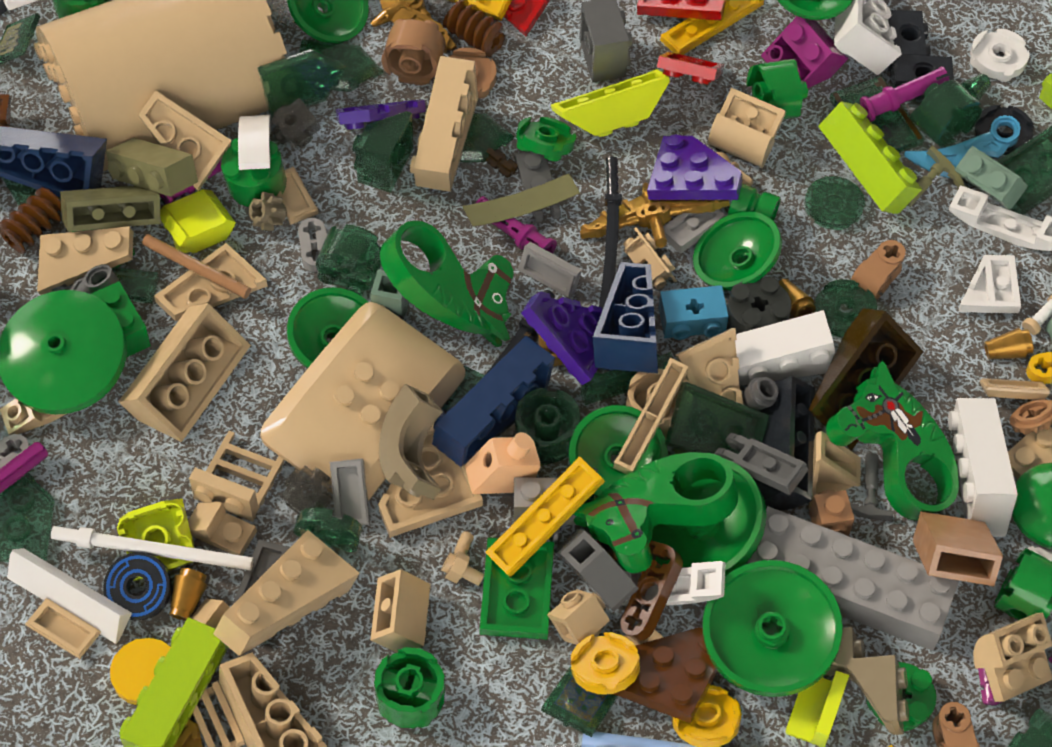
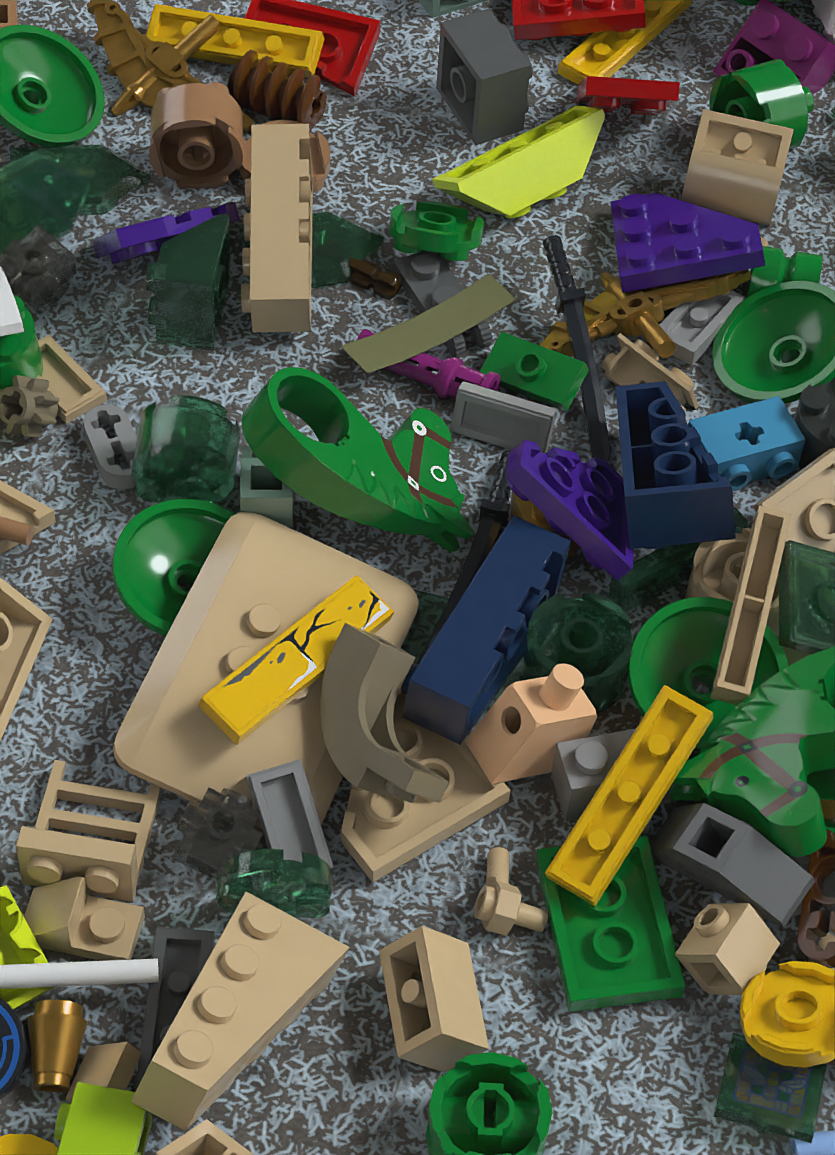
camera: 15 degrees left, 5 degrees down
(372, 399) = (291, 661): none -> yellow tile
(579, 241) = (535, 371): none -> green plate

